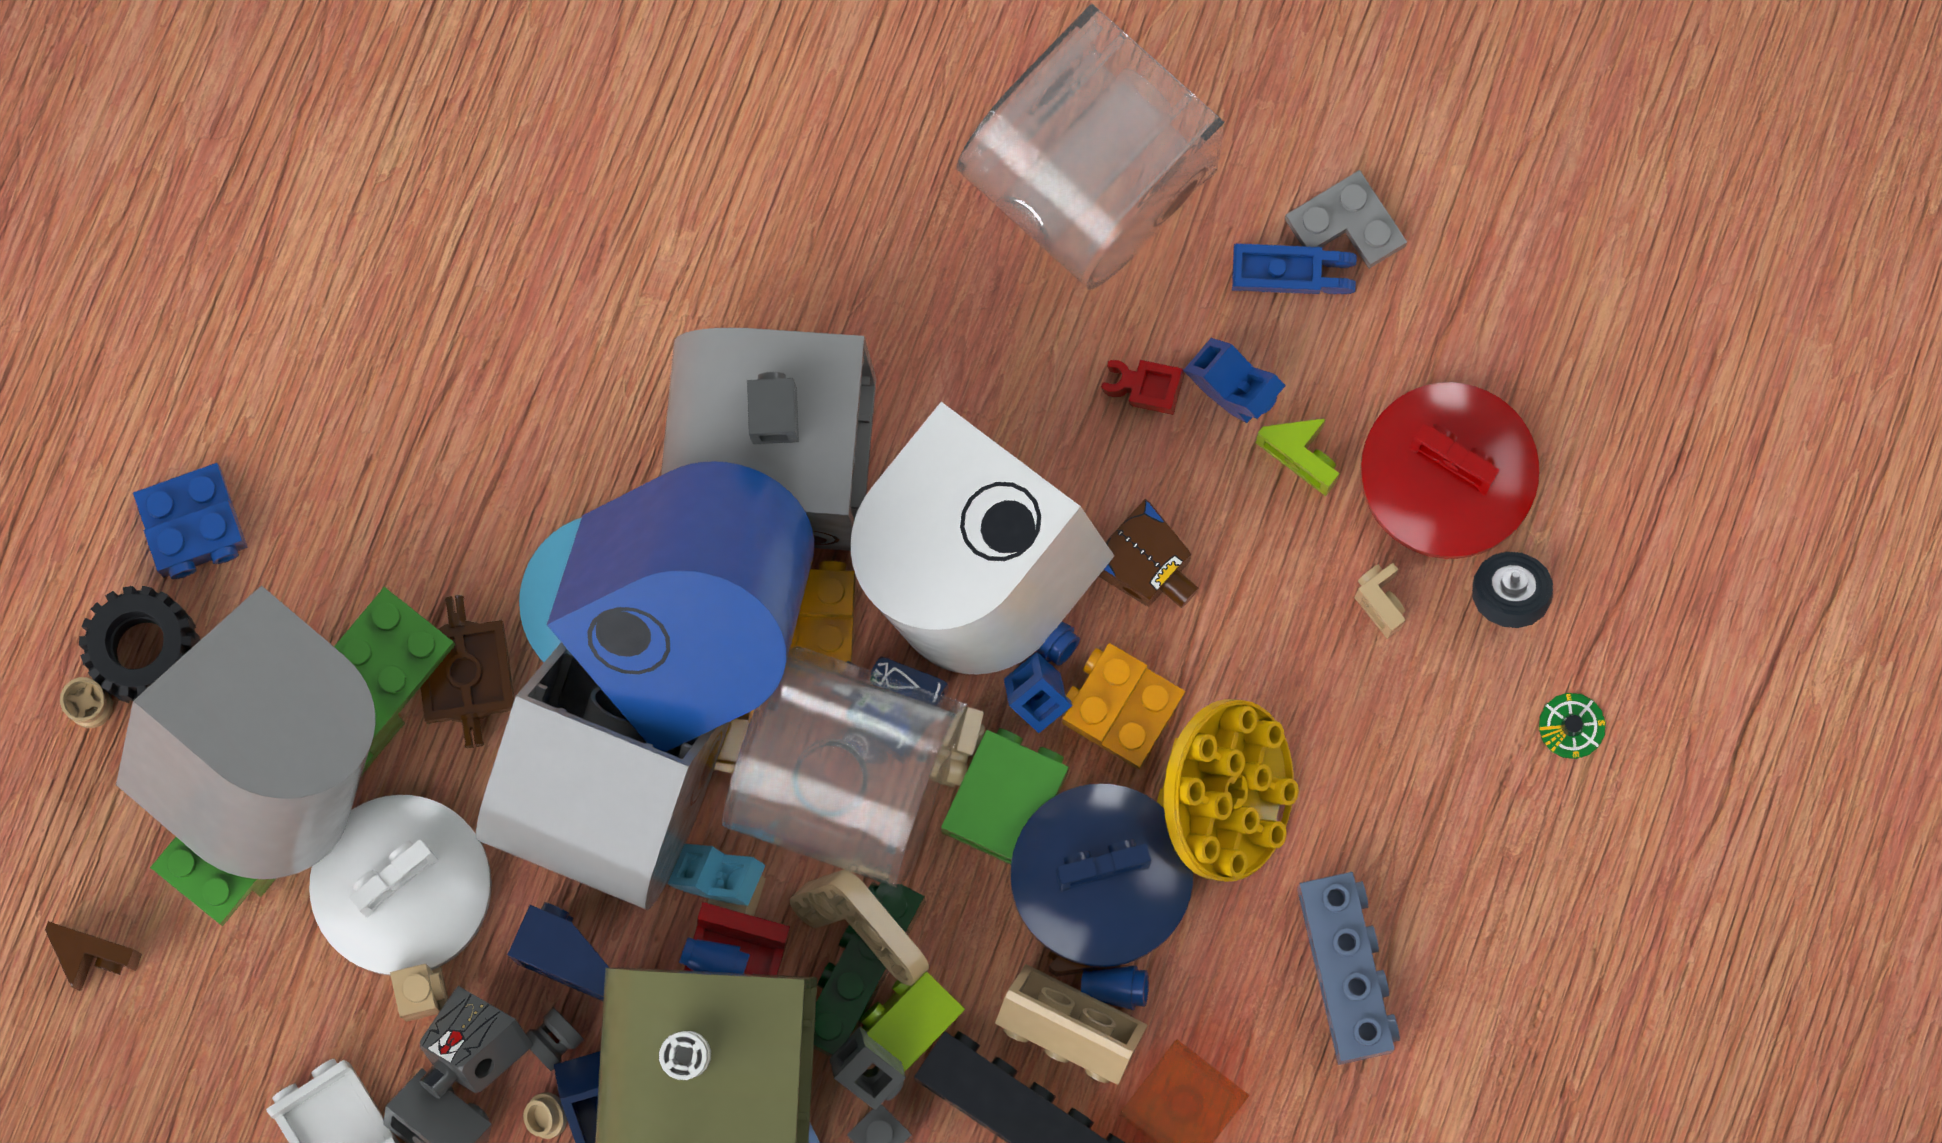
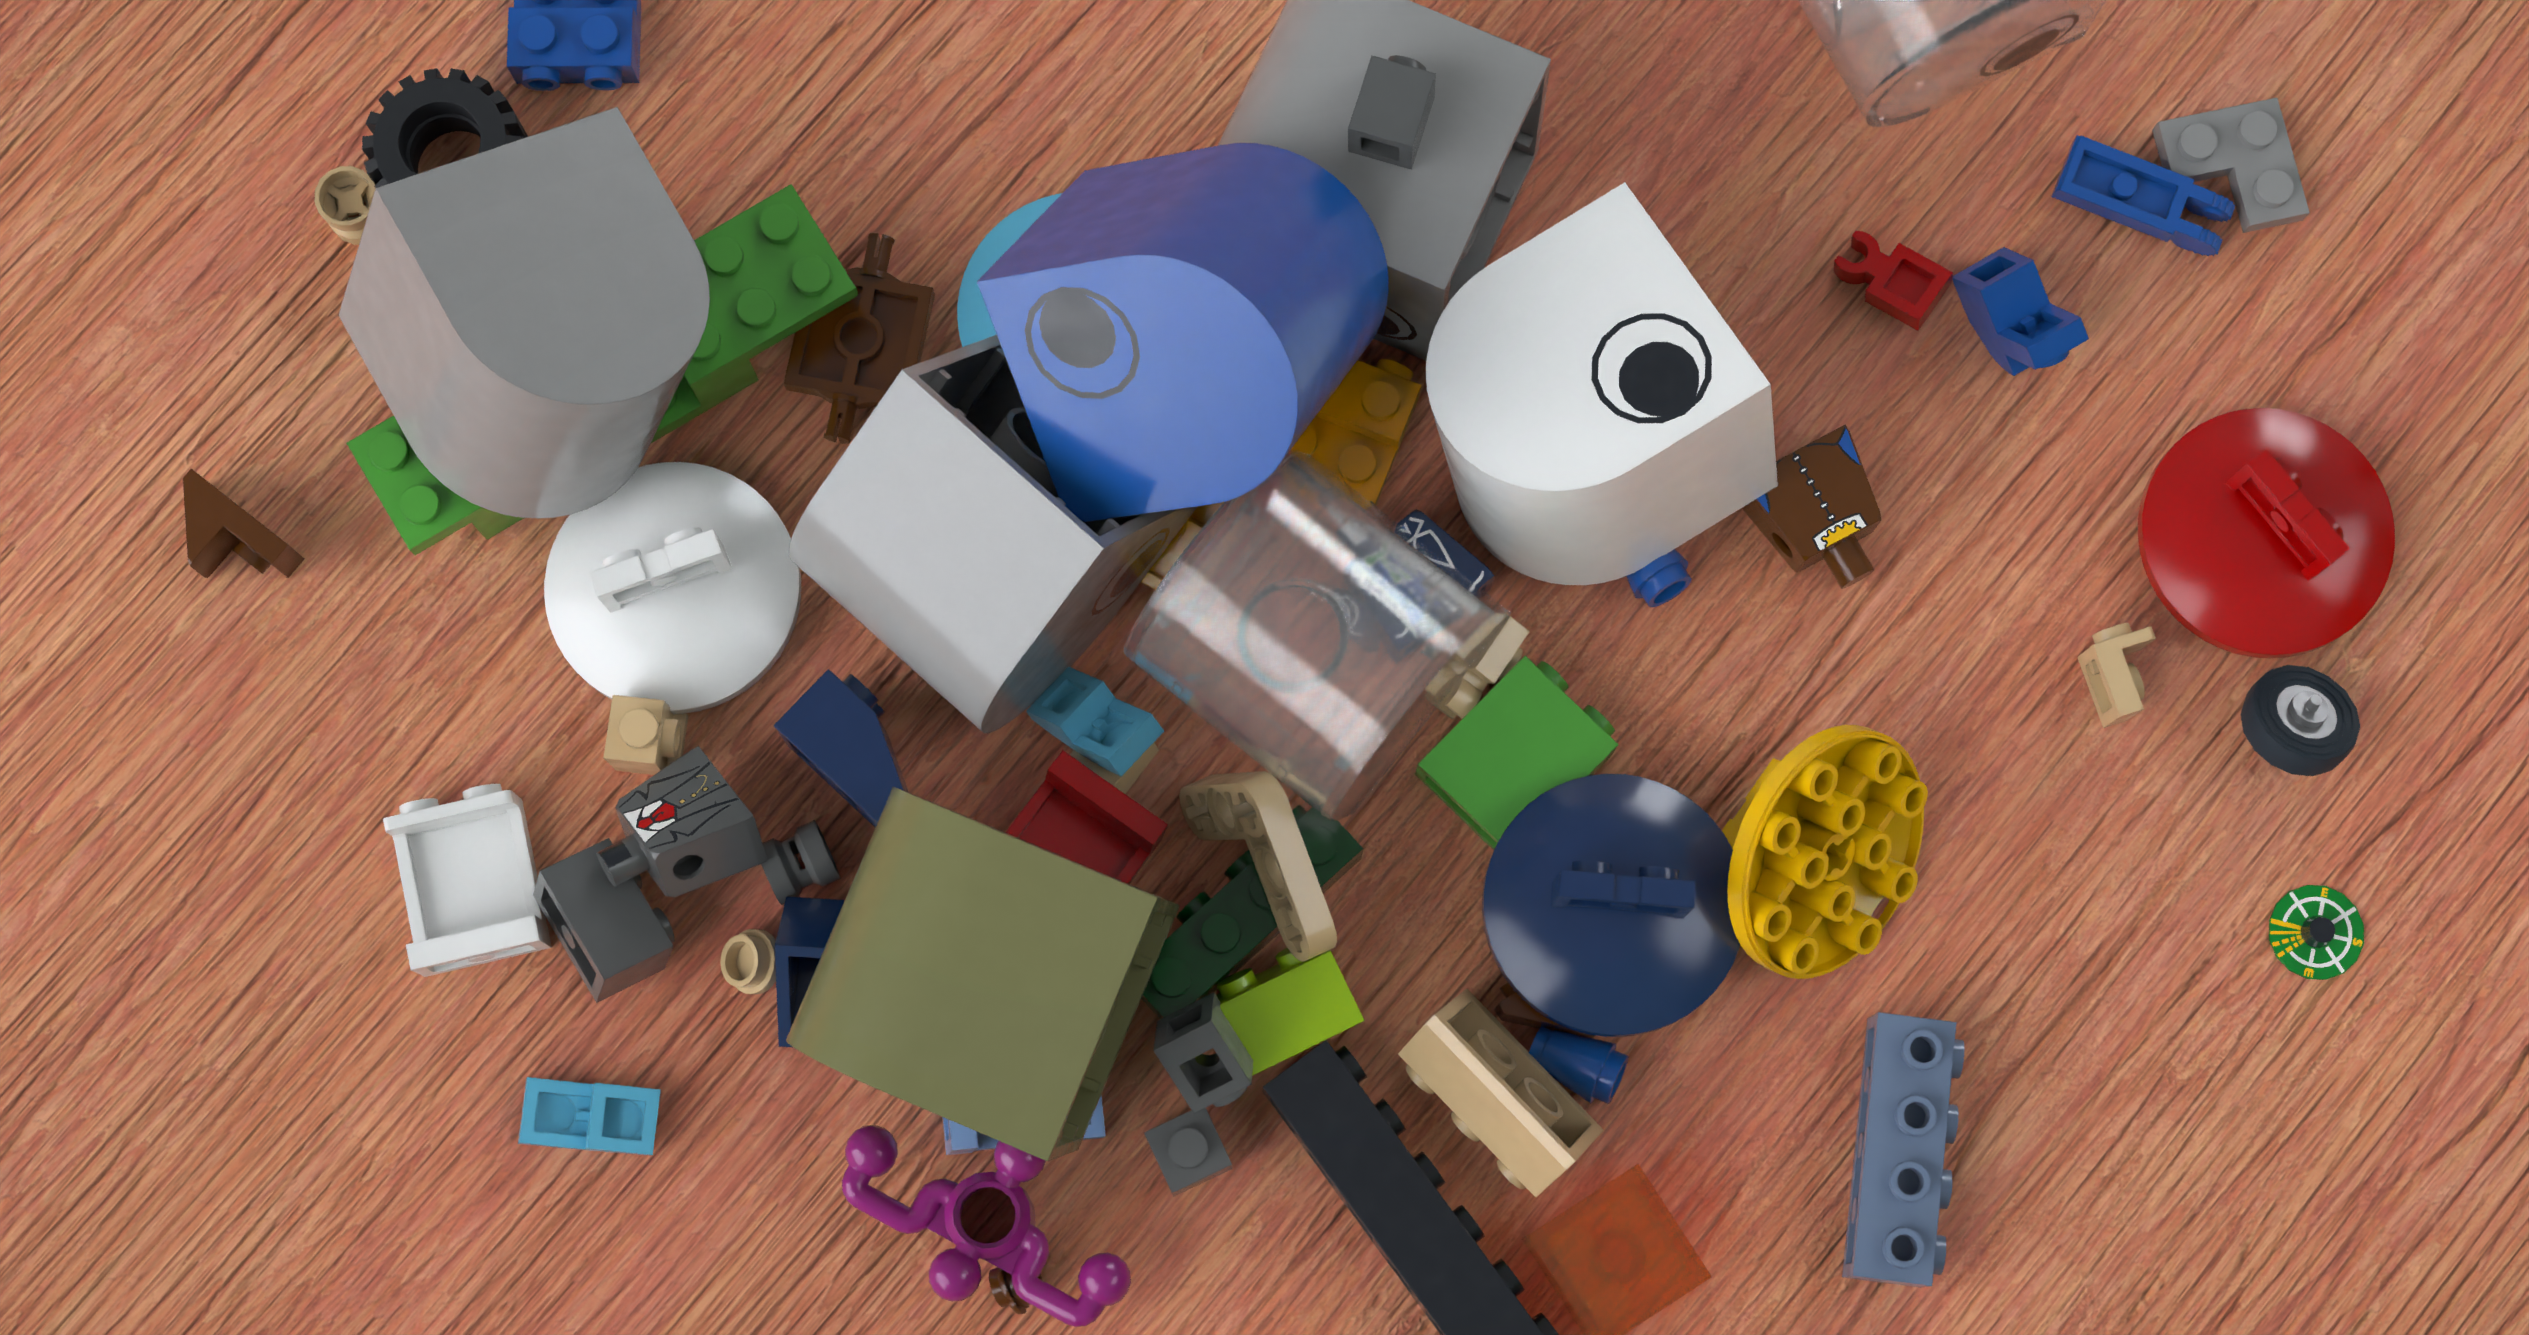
camera: 15 degrees right, 0 degrees up
(692, 1053) = (965, 941): white wheel -> none
(713, 956) = (1050, 828): blue cone -> none
(1037, 692) = (1609, 631): blue brick -> none
(1121, 705) = (1715, 688): light orange plate -> none
(1289, 446) = (2061, 427): lime slope -> none

